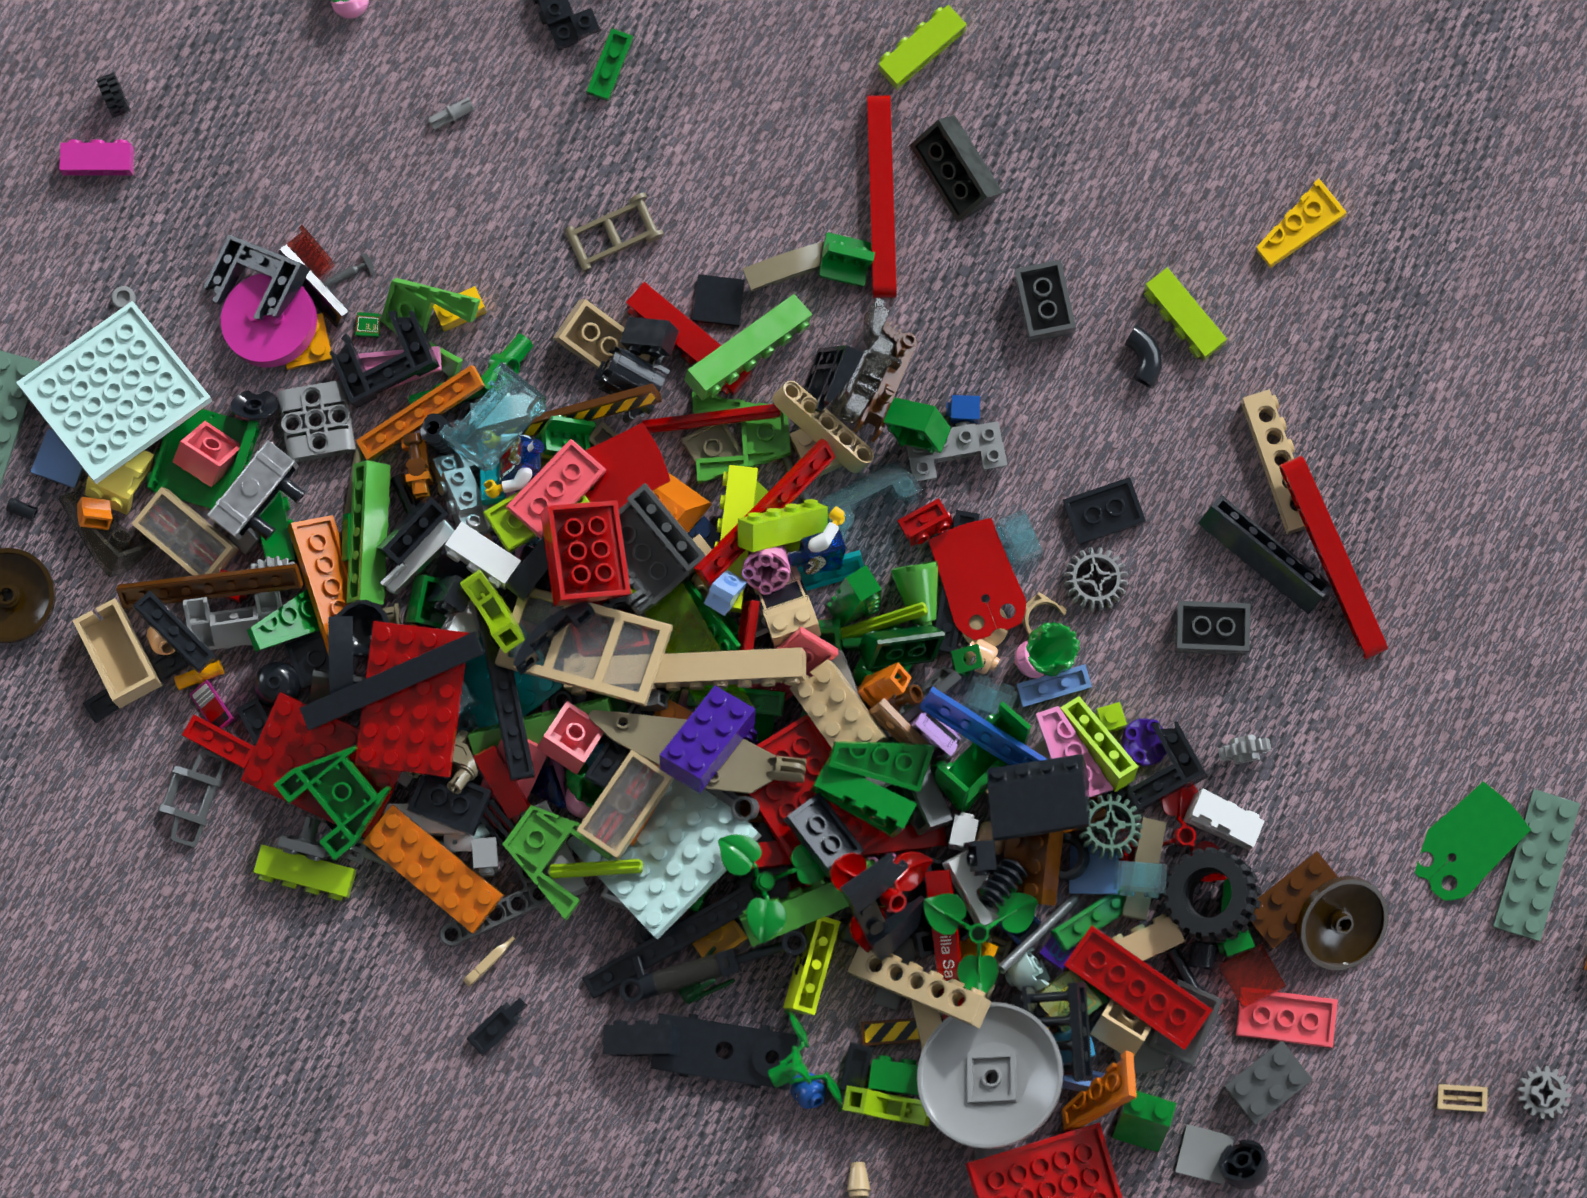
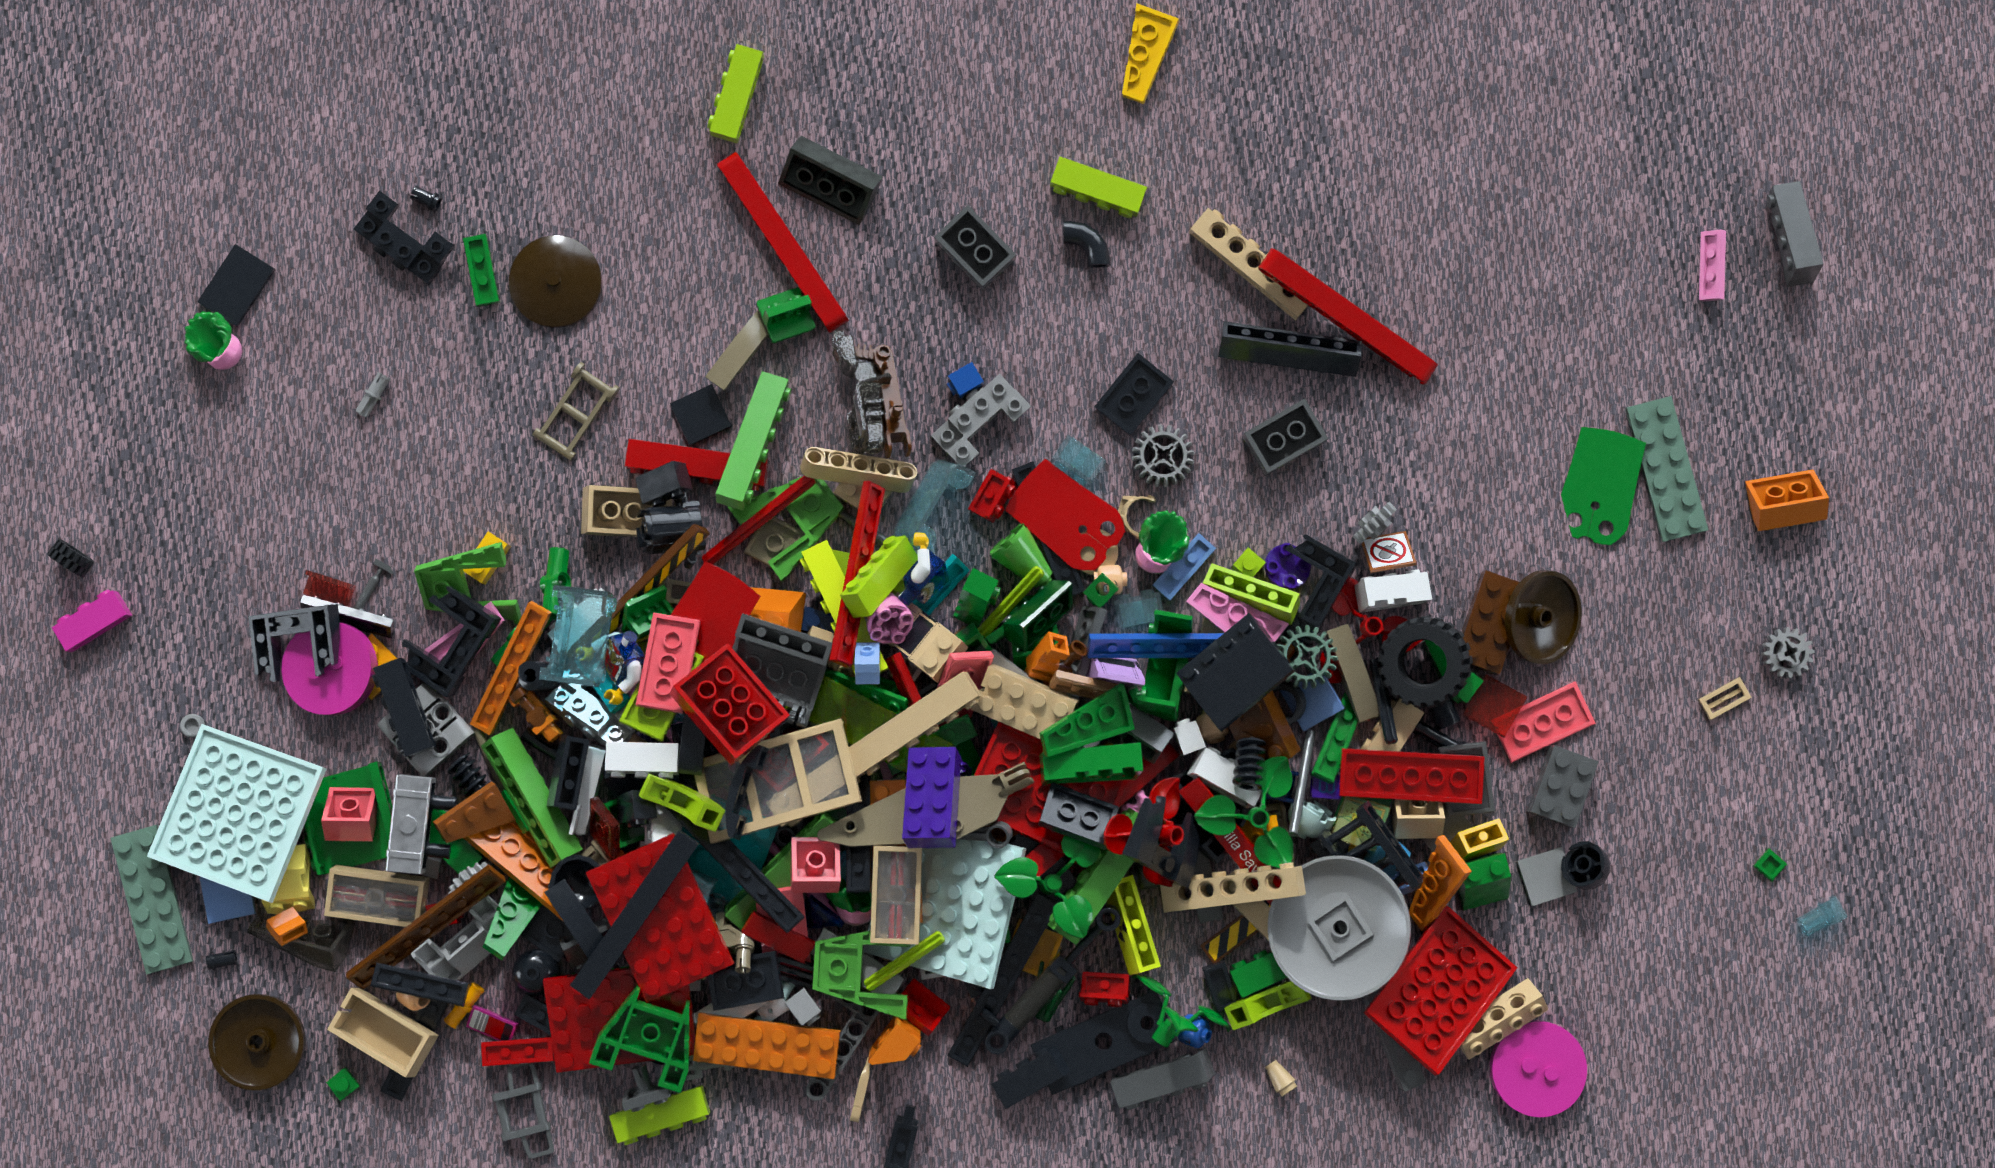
camera: 40 degrees left, 5 degrees up
(55, 677) = (343, 1084): none -> green plate
(254, 406) = (365, 749): black dish -> none
(310, 390) = (404, 707): none -> black brick
(311, 516) = (475, 814): none -> dark orange wing
(325, 487) = (467, 775): none -> black piece
(368, 325) = (417, 619): green tile -> none
(413, 596) = (604, 828): none -> clear red tile
(546, 934) = (895, 1042): none -> orange slope
(588, 923) = (924, 1007): none -> red bracket
(657, 701) = (867, 789): dark grey piece -> none
(666, 112) = (555, 281): none -> dark brown dish
(754, 1005) = (1105, 988): none -> red bracket
(755, 1114) = (1163, 1079): none -> dark grey wedge
(831, 373) = (834, 413): black wedge -> none
(917, 425) = (936, 420): green container -> none
(981, 857) = (1218, 751): black brick -> none
(1140, 878) = (1356, 684): clear light blue brick -> none
(1151, 918) = (1384, 703): none -> black axle
(1164, 1082) = (1480, 840): none -> yellow brick
(1241, 783) = (1388, 552): none -> piece

